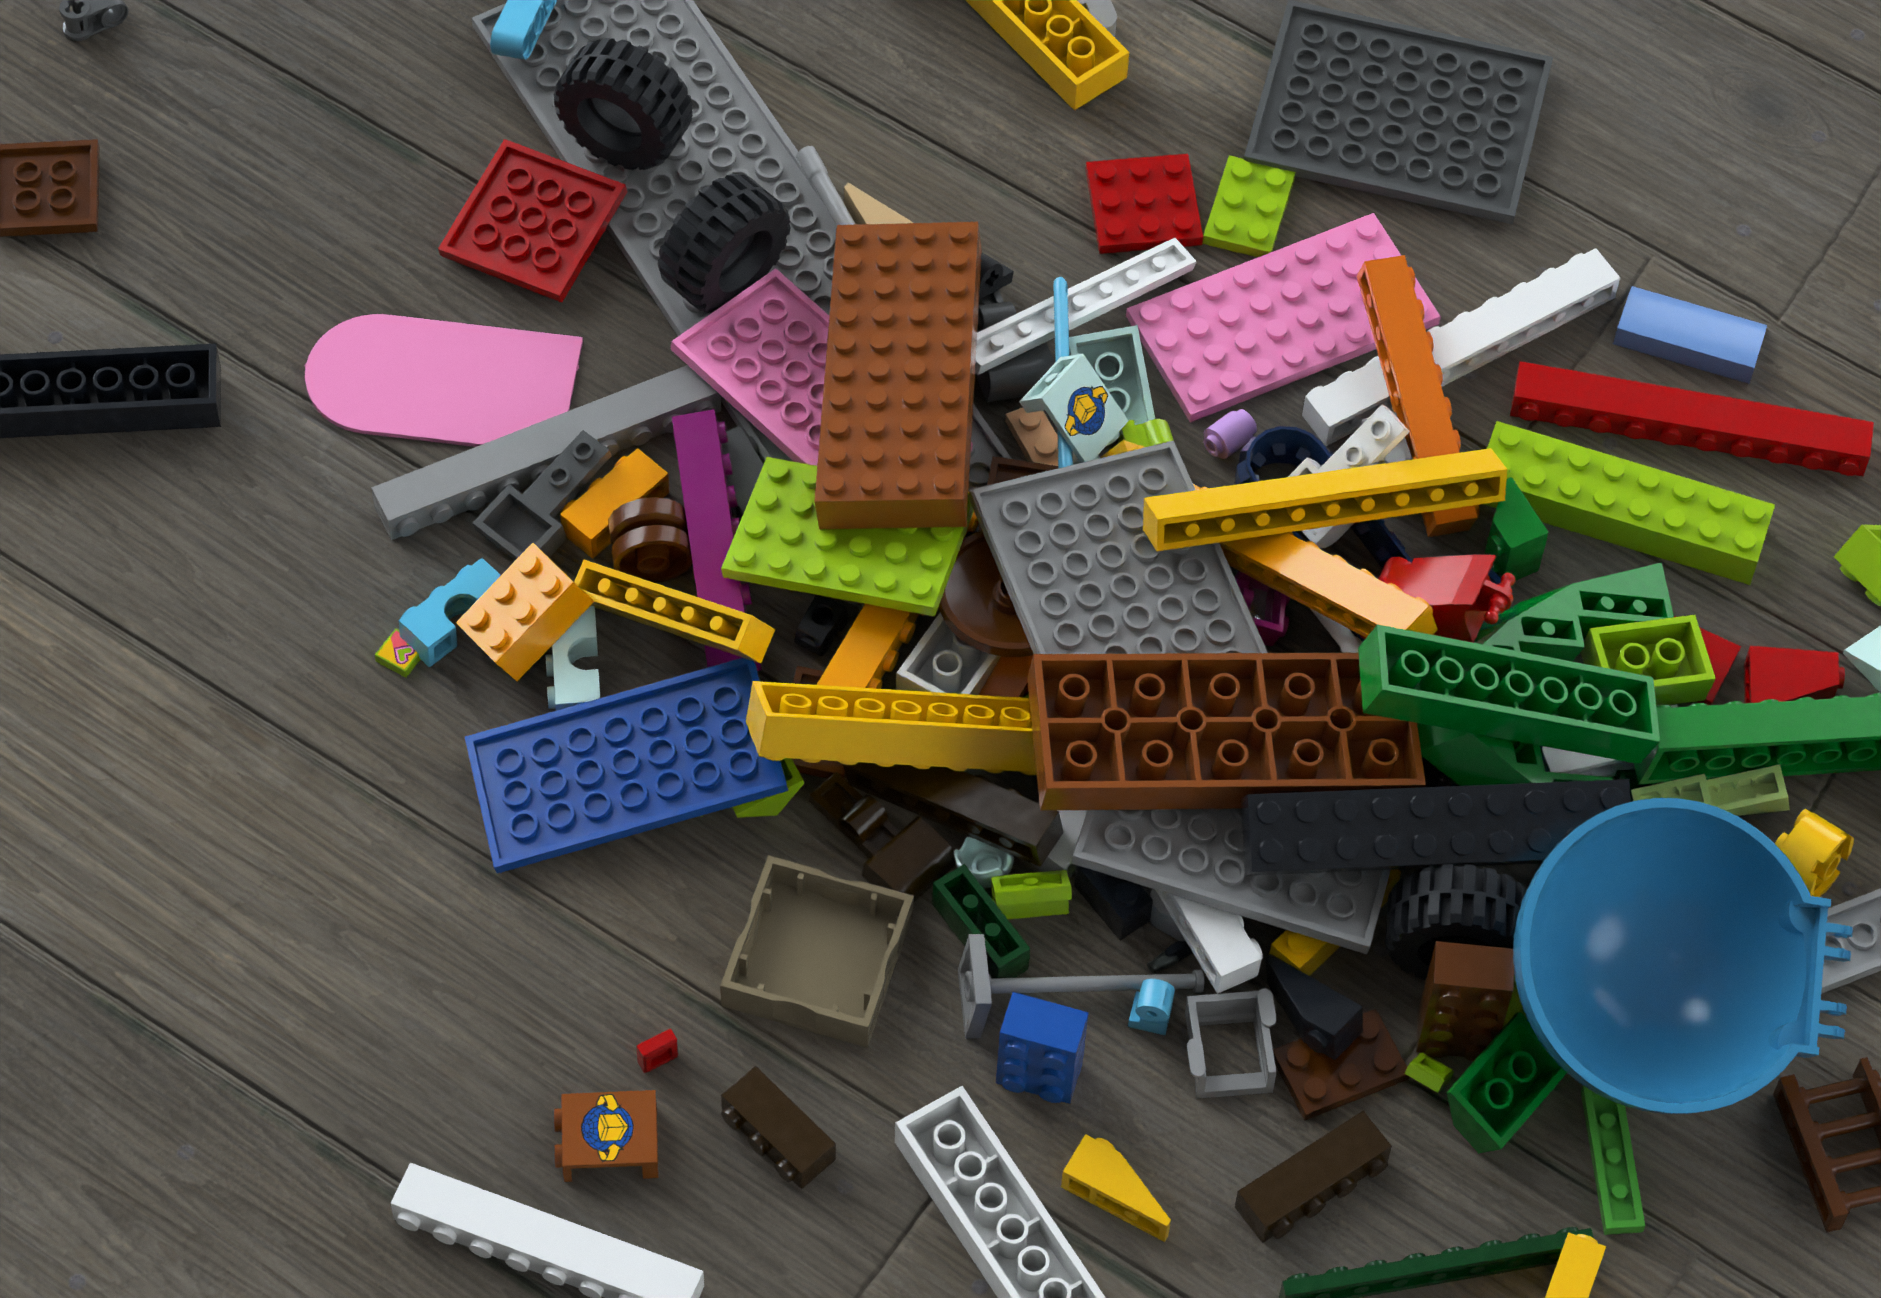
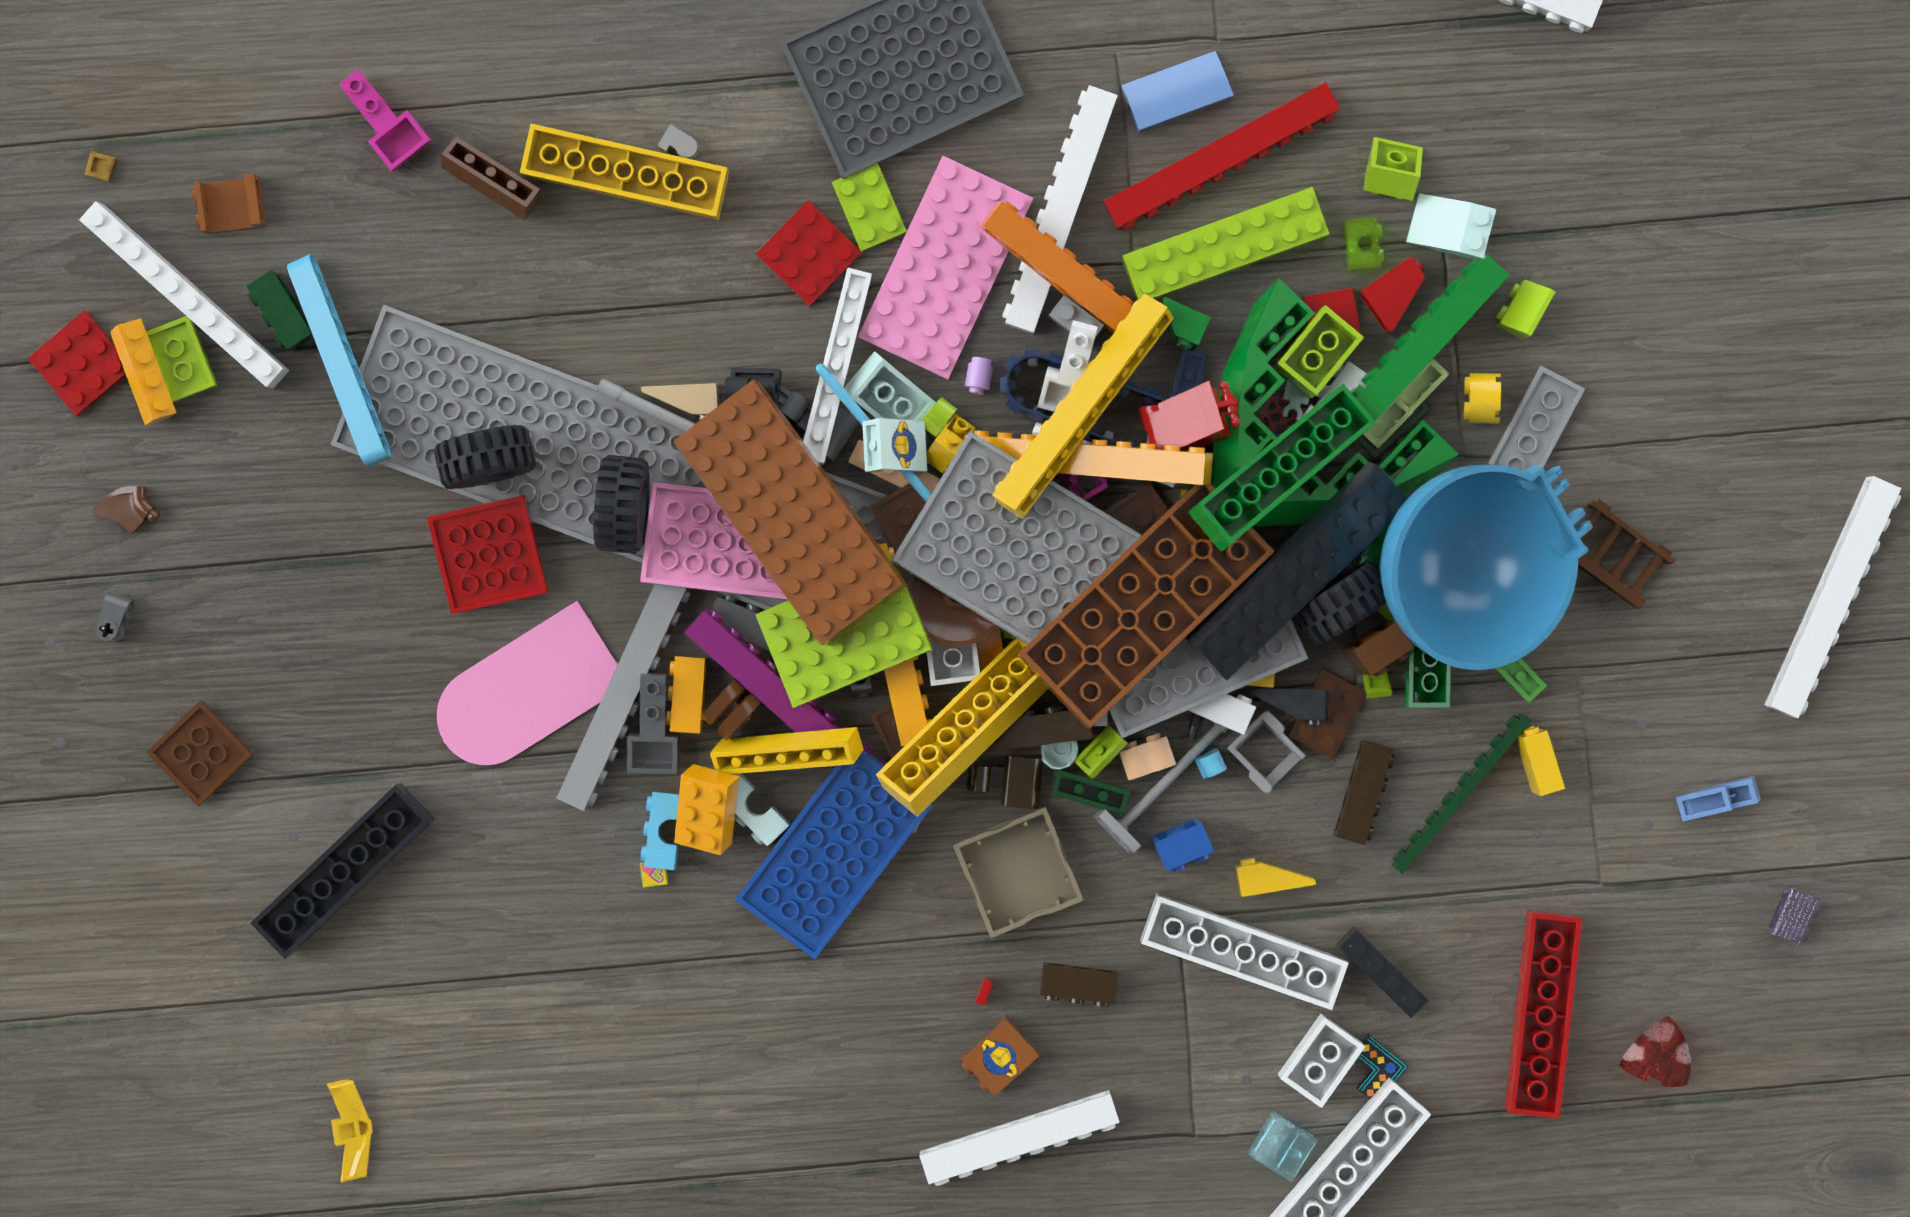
camera: 40 degrees left, 30 degrees up
(1080, 944) = (1147, 756): none -> light nougat brick
(1792, 593) = (1356, 257): none -> clear neon green brick

